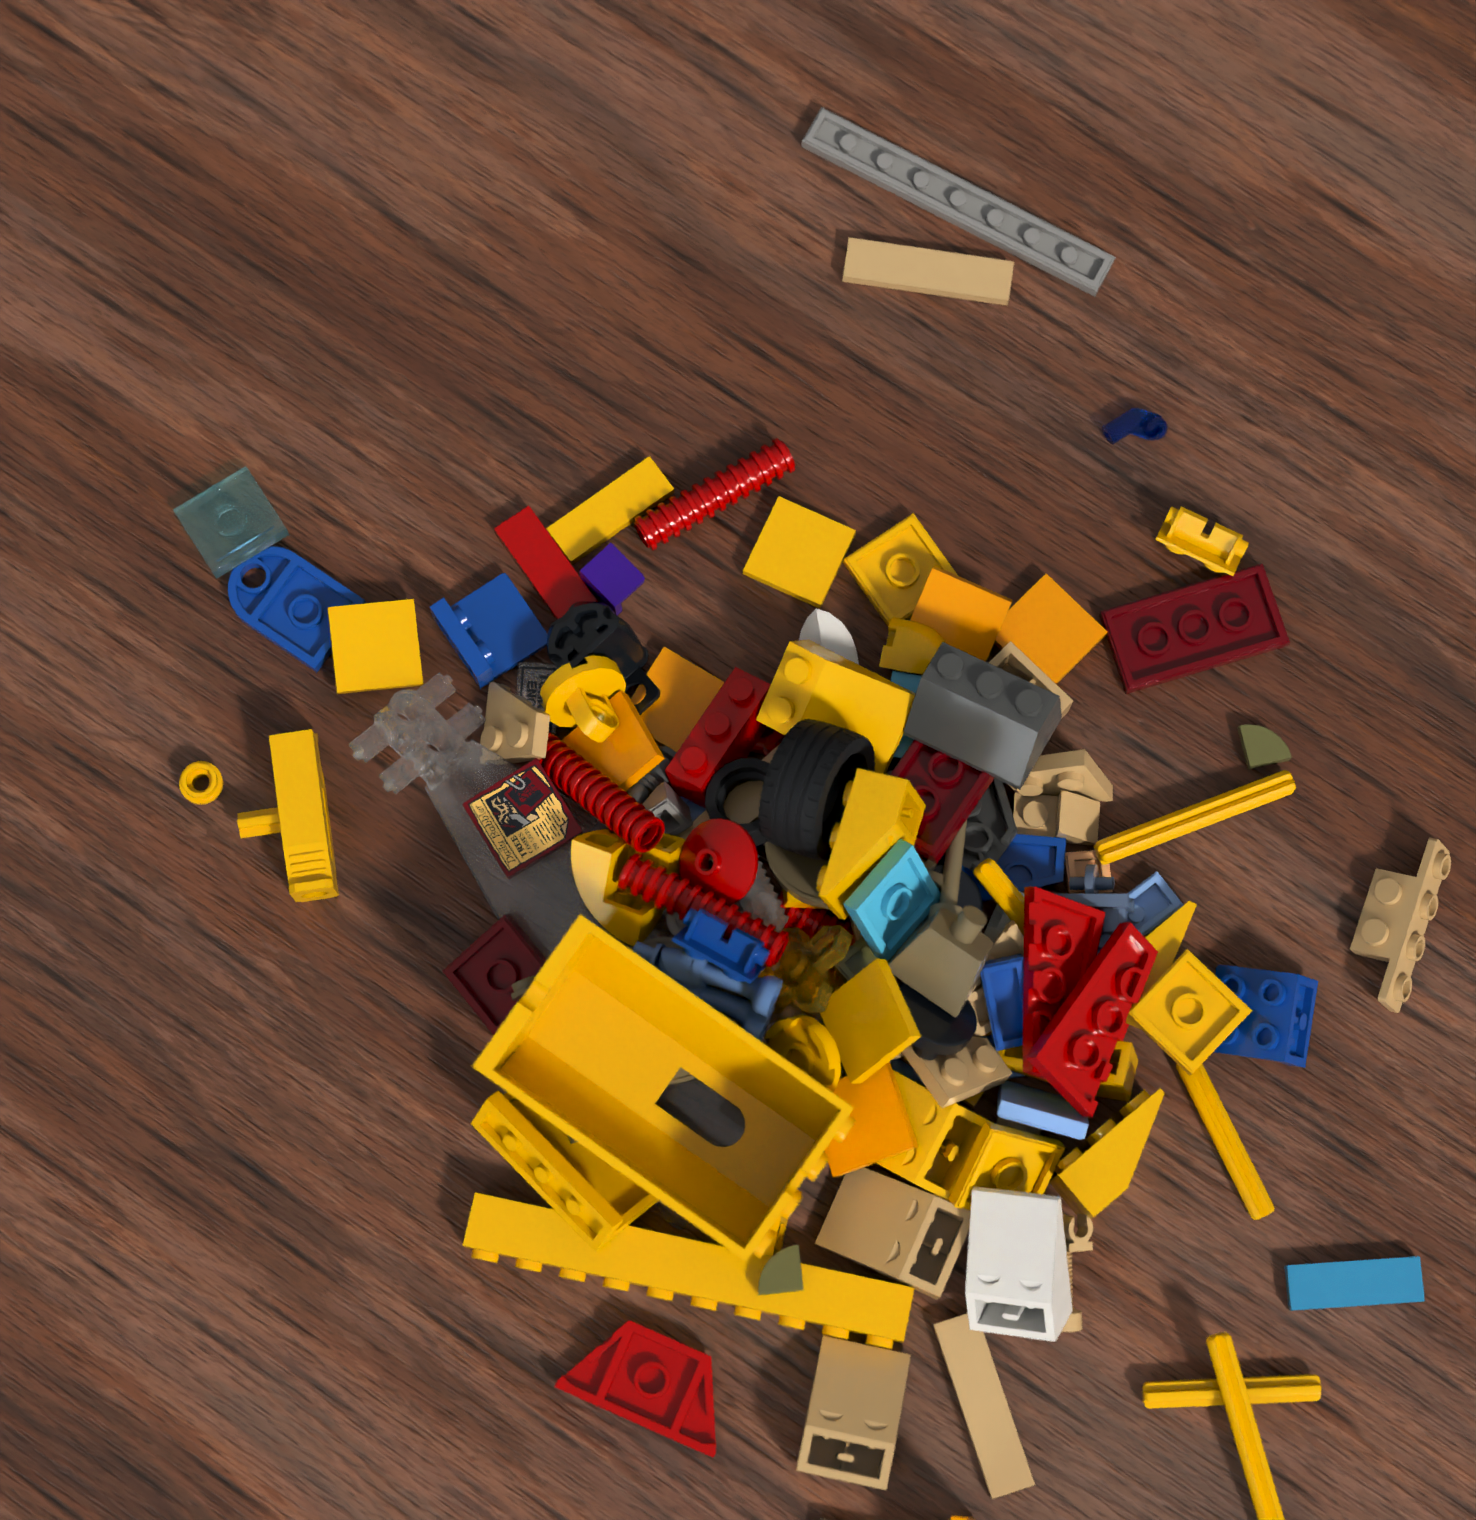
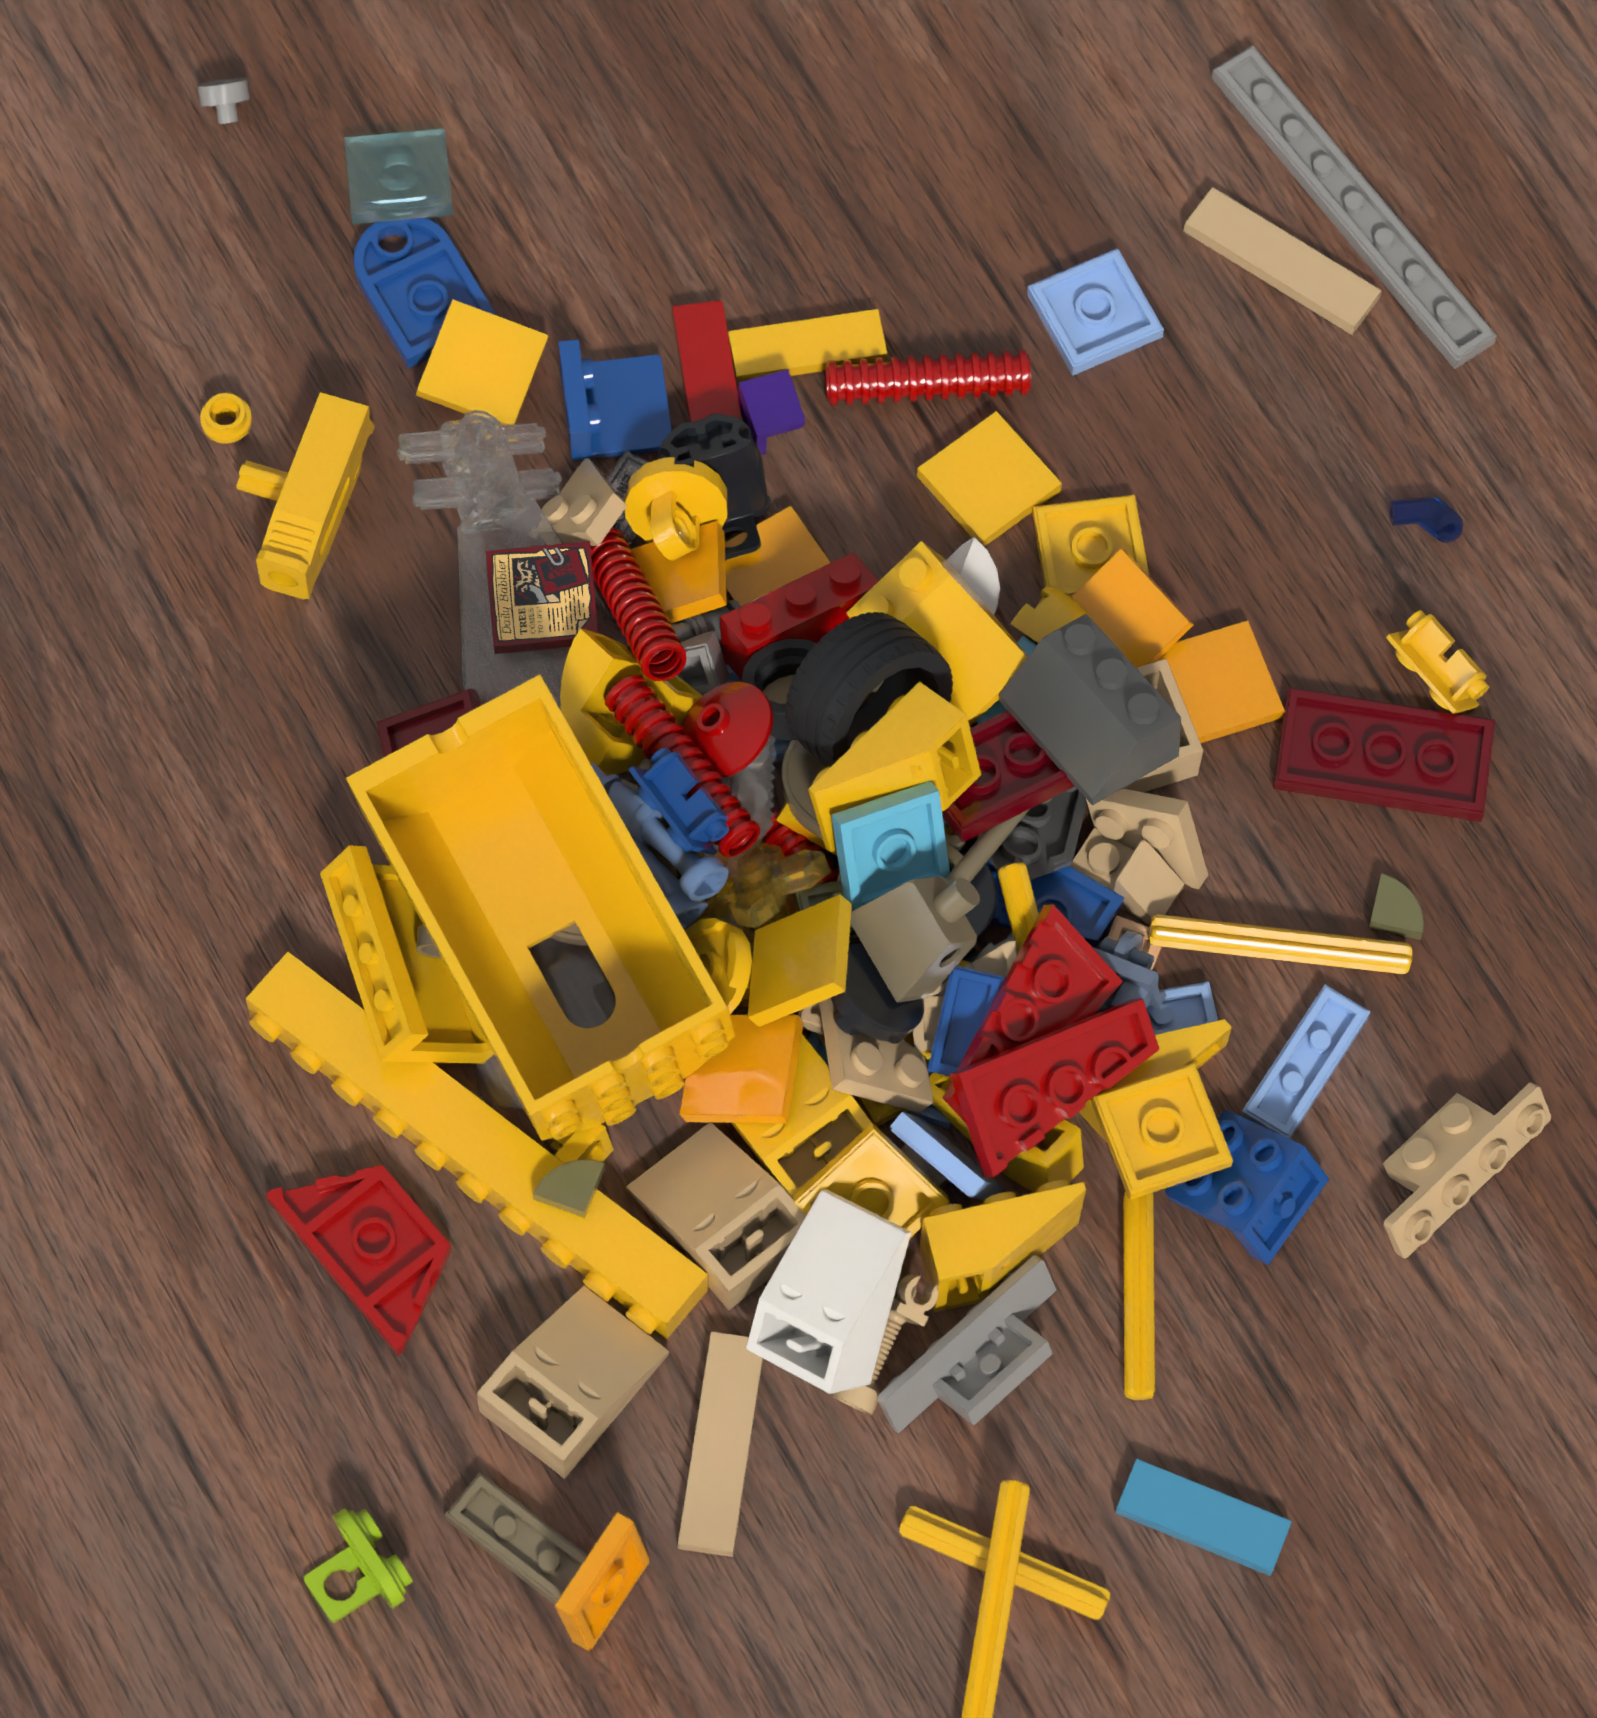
camera: 25 degrees right, 10 degrees down
(62, 521) = (224, 95): none -> light grey tile
(810, 378) = (1095, 311): none -> light blue tile
(1140, 1246) = (979, 1356): none -> light grey bracket
(1256, 899) = (1306, 1062): none -> light blue tile

